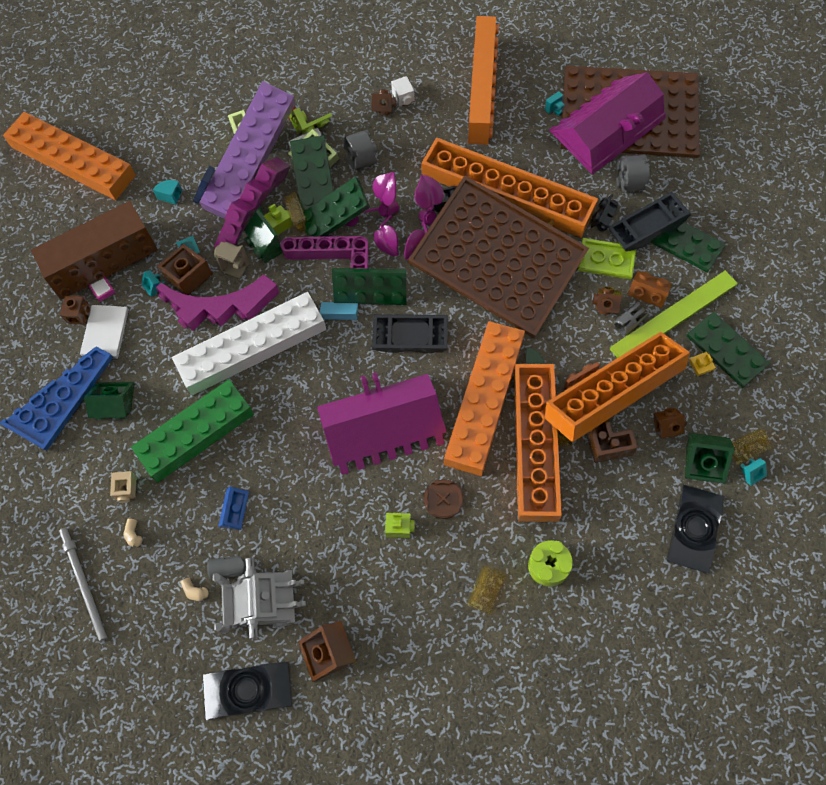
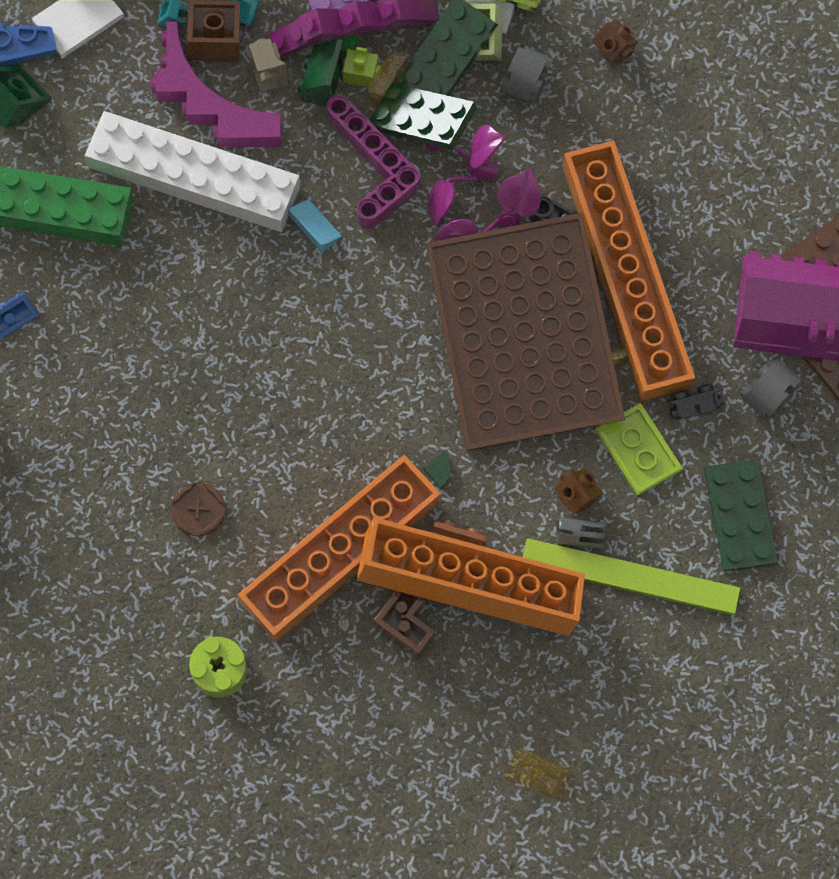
camera: 40 degrees right, 5 degrees up
(370, 286) = (365, 231): dark green plate -> none
(382, 421) = (224, 375): magenta piece -> none
(399, 525) = (129, 489): lime brick -> none
(403, 91) = (652, 50): white brick -> none
(409, 333) = (352, 319): black slope -> none
(483, 79) = (746, 124): orange brick -> none
(484, 399) = (344, 456): orange brick -> none
(486, 590) = (139, 630): clear yellow slope -> none
(554, 104) = (795, 229): teal tile -> none
(649, 222) = (720, 457): black slope -> none
(649, 289) = (640, 524): dark orange bracket -> none
(669, 423) = (485, 667): reddish brown brick -> none
(696, 529) = (390, 784): black slope -> none
(702, 364) = (594, 650): yellow tile -> none
(708, 458) = (481, 737): dark green slope -> none
(728, 349) = (639, 664): dark green plate -> none
(755, 471) = (508, 797): teal tile -> none

